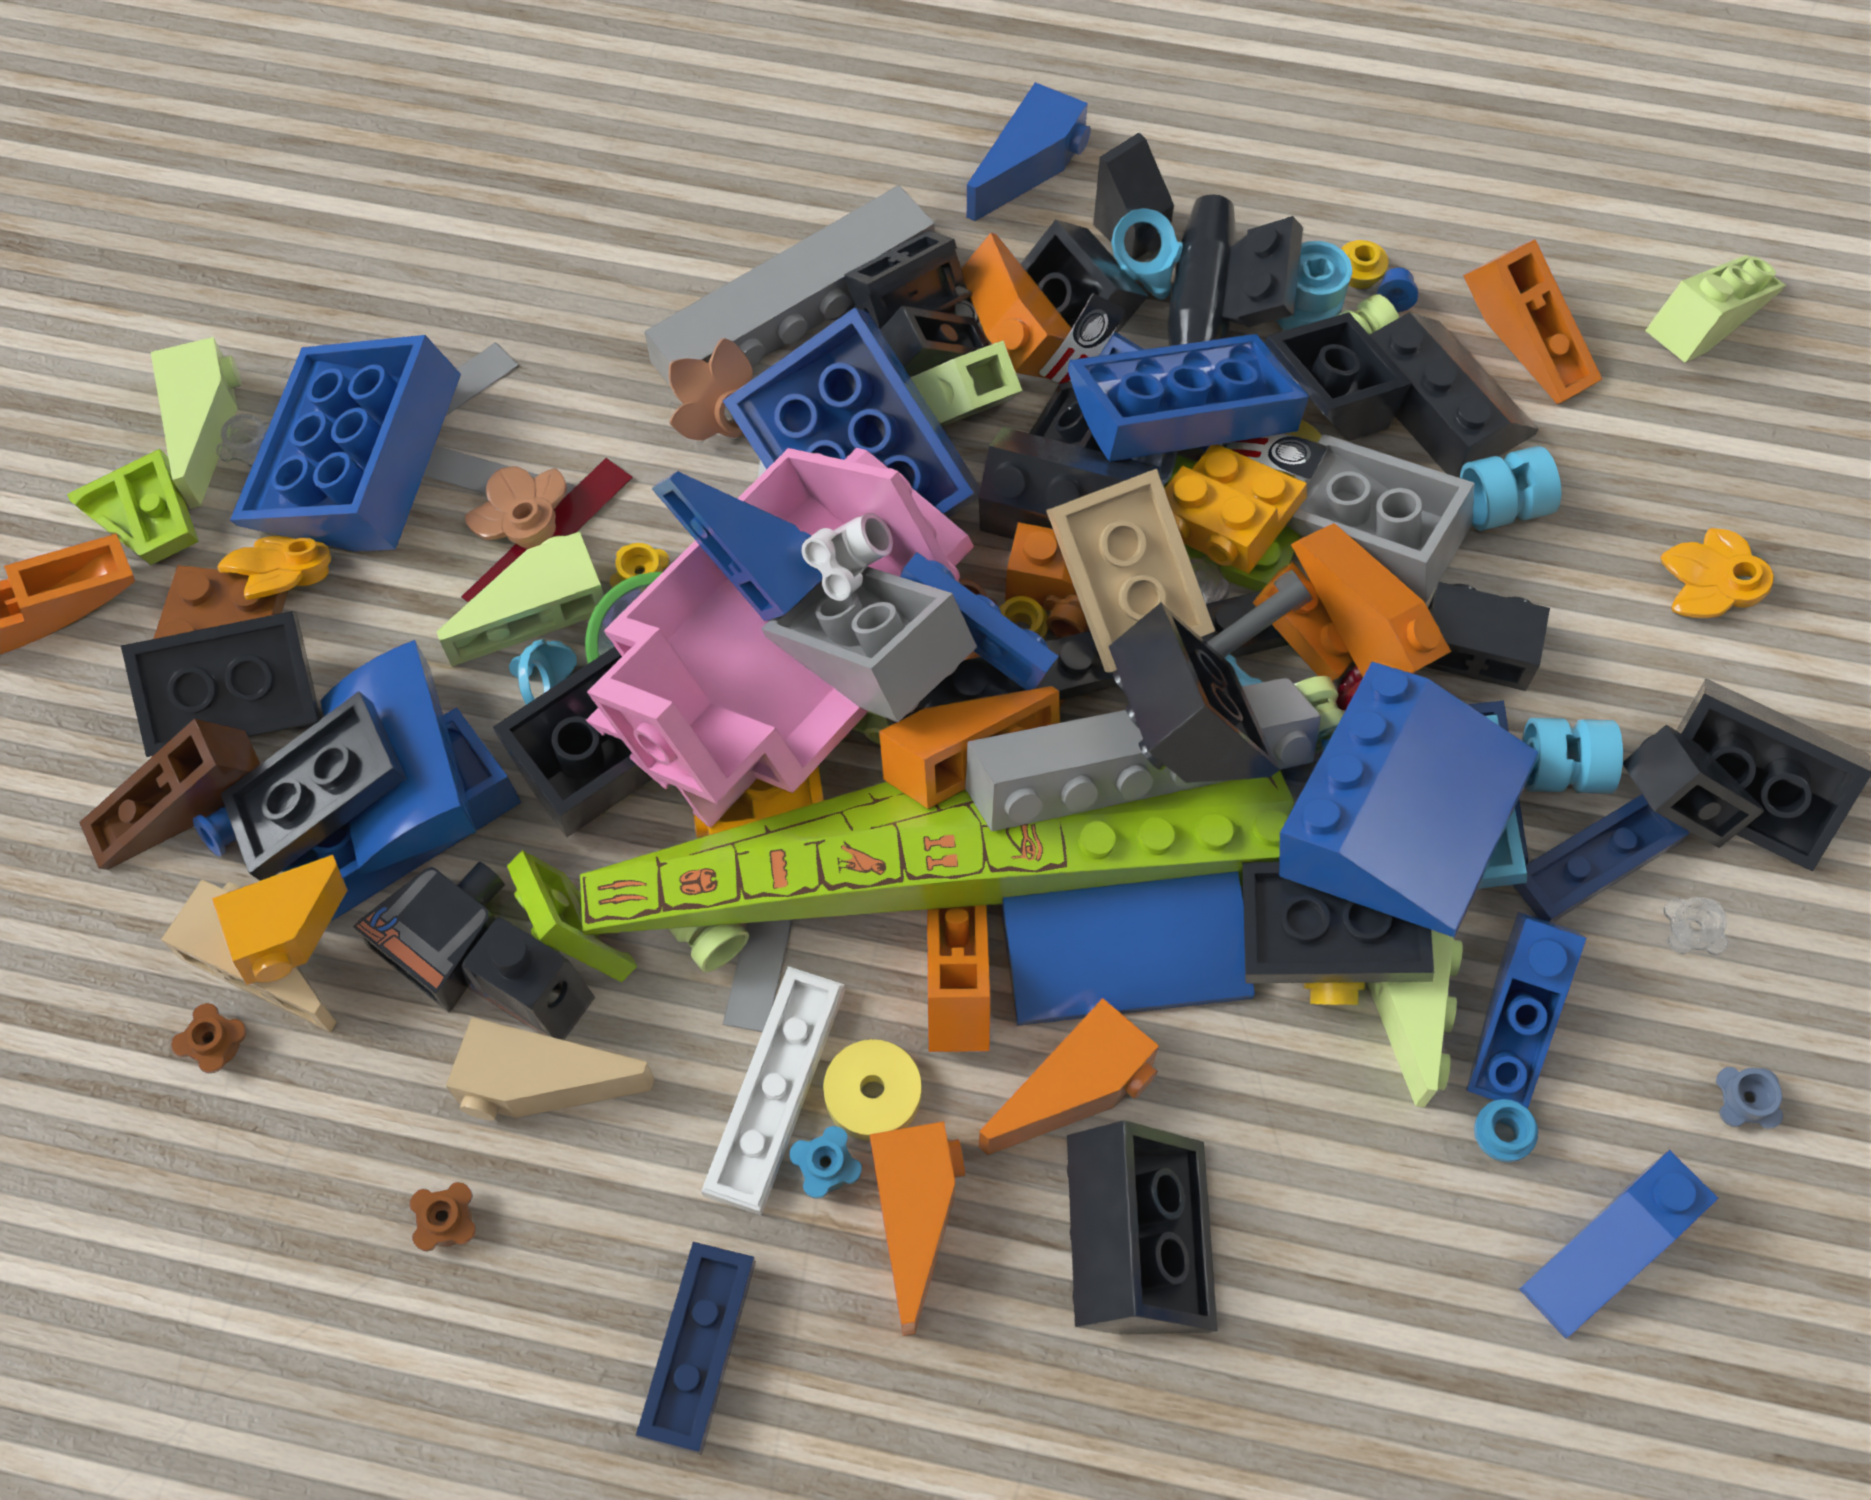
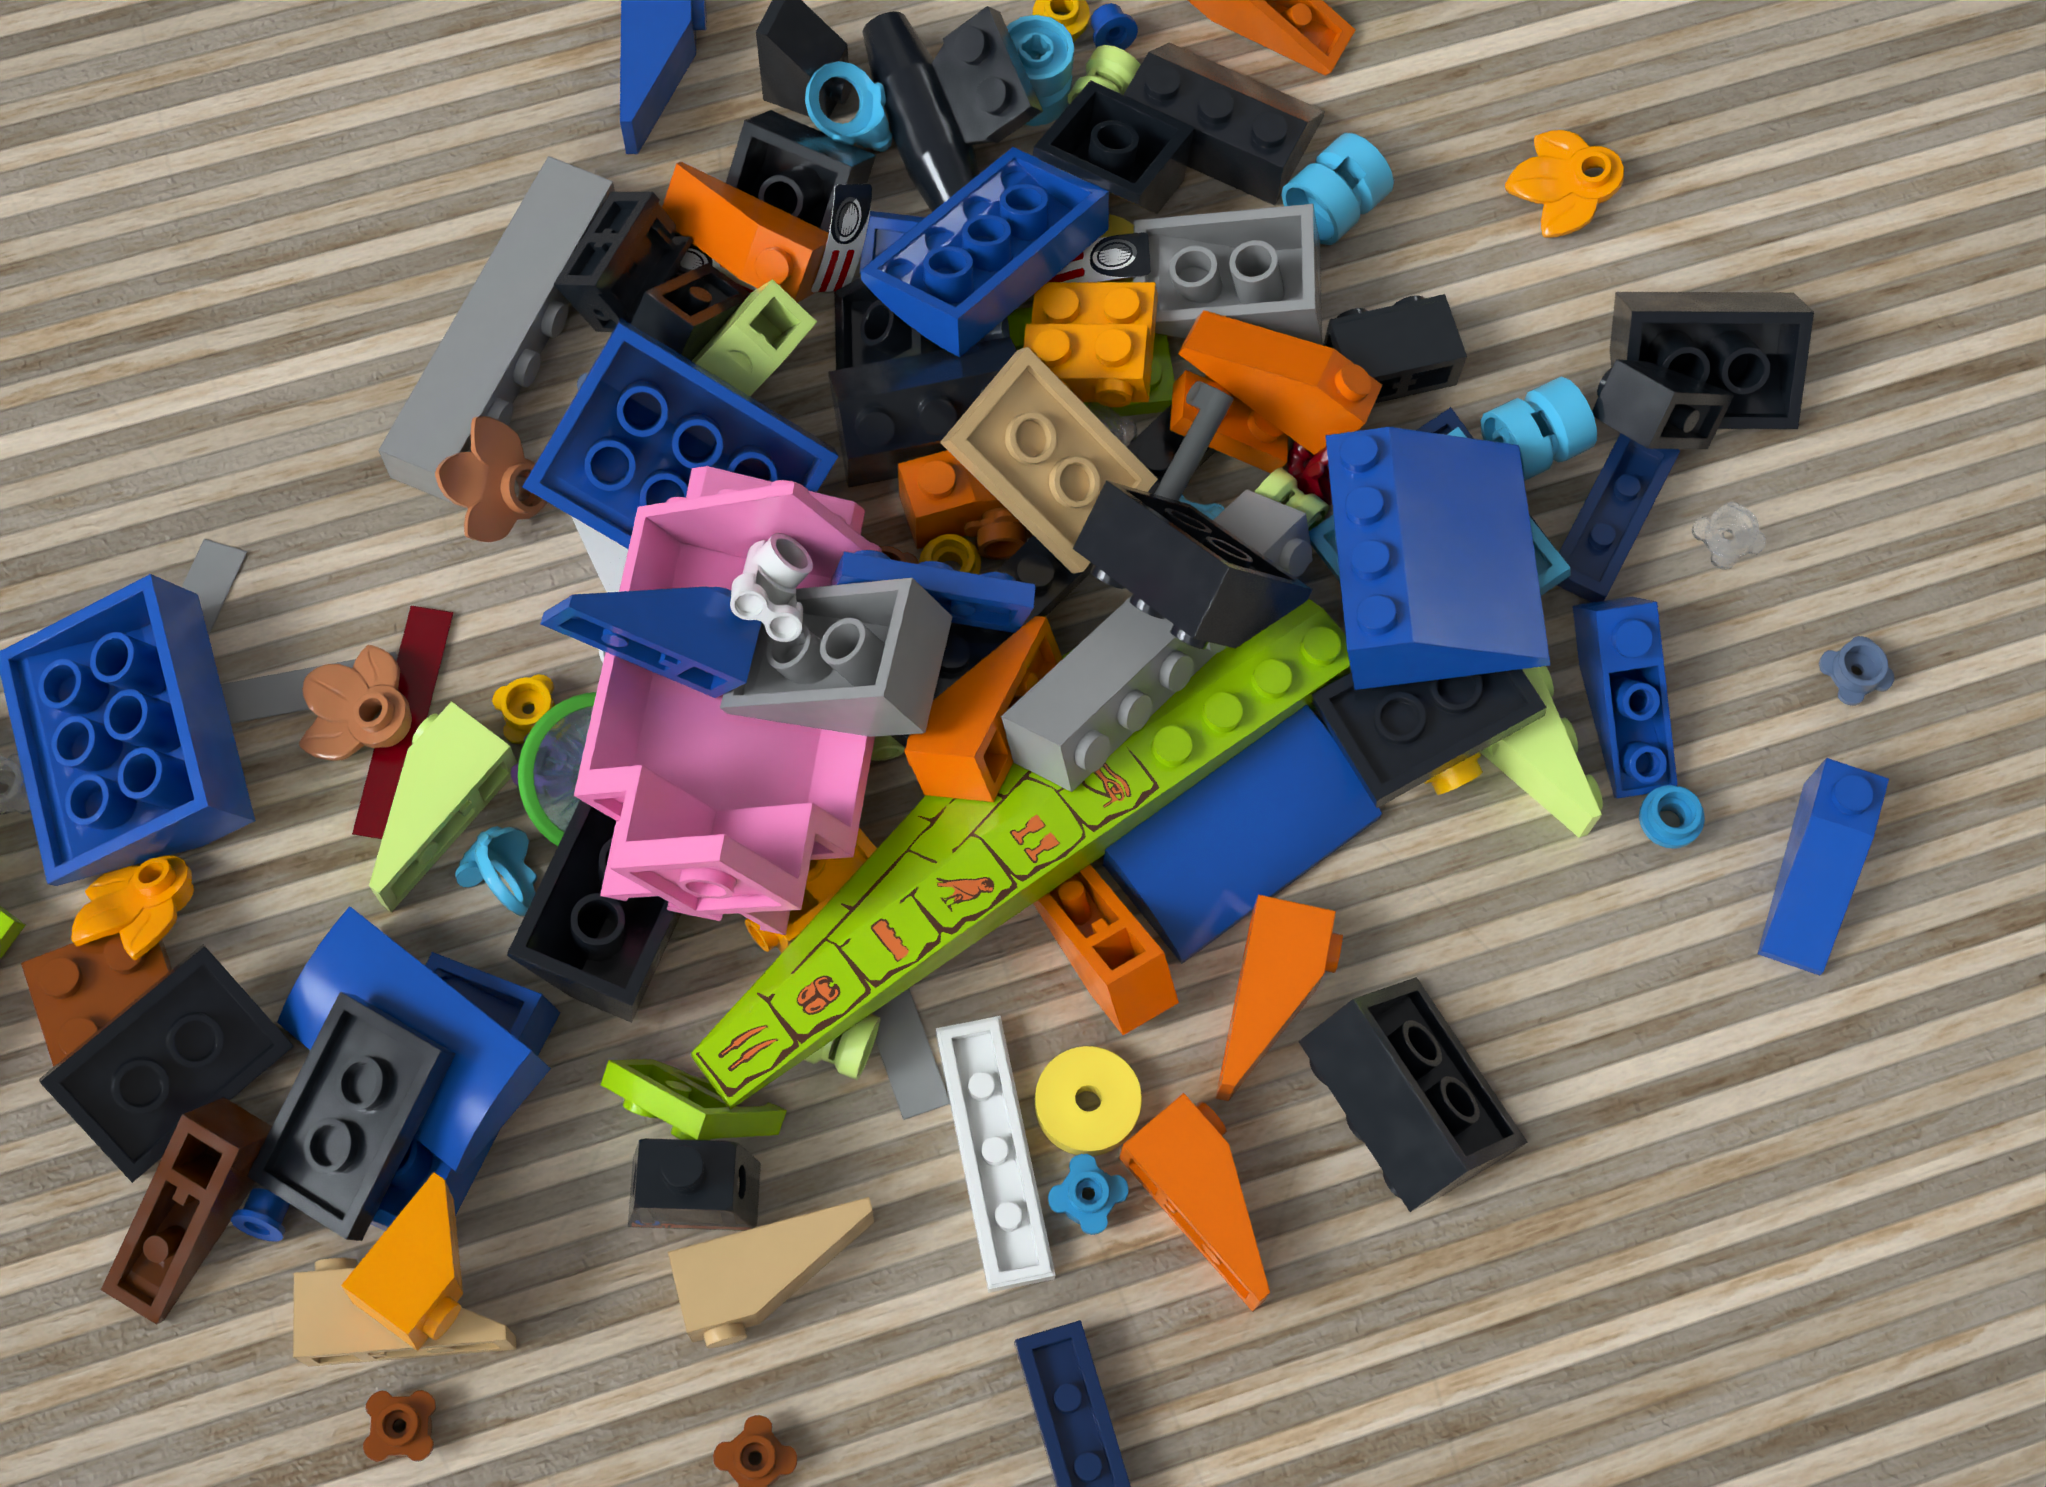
camera: 35 degrees left, 5 degrees up
(432, 928) = (565, 1188): black torso -> none

